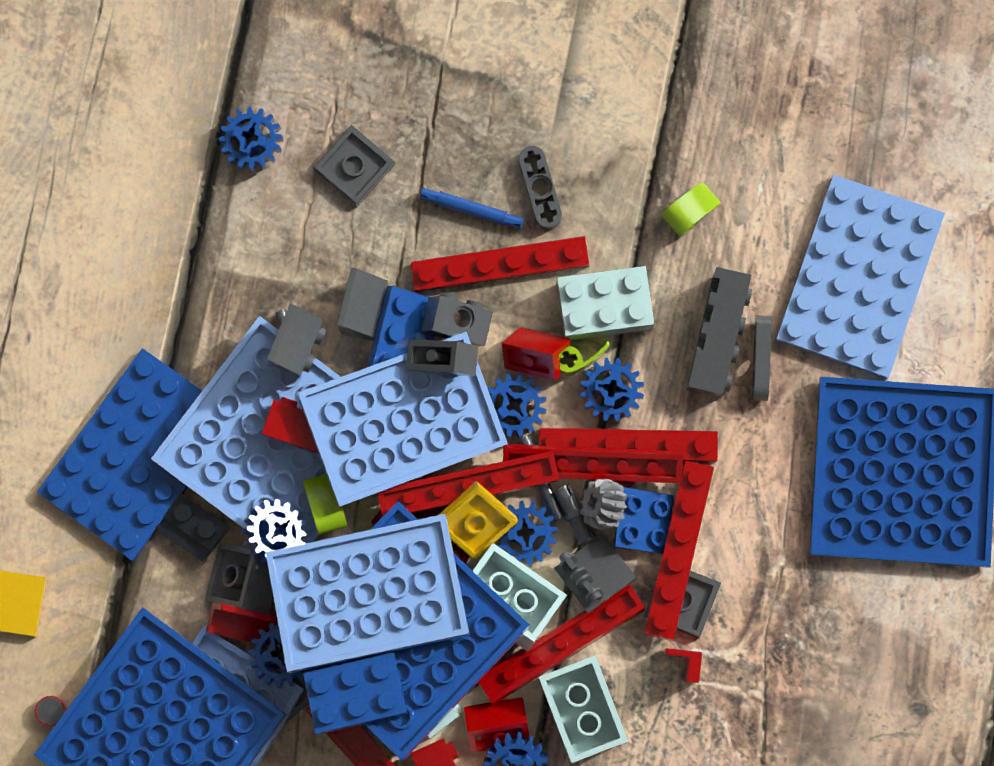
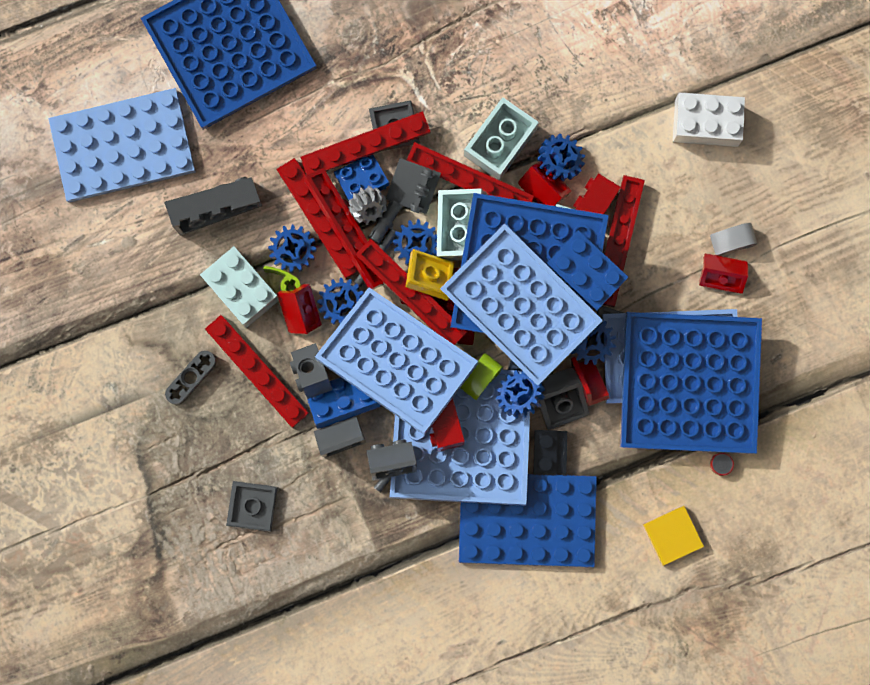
camera: 125 degrees left, 0 degrees up
(255, 127) = (279, 594): blue gear -> none
(442, 357) = (342, 358): dark grey slope -> none
(471, 208) = (232, 412): blue piece -> none
(690, 209) = (145, 274): lime panel -> none
(692, 663) = (430, 91): red panel -> none
(761, 358) = (212, 171): dark grey beam -> none

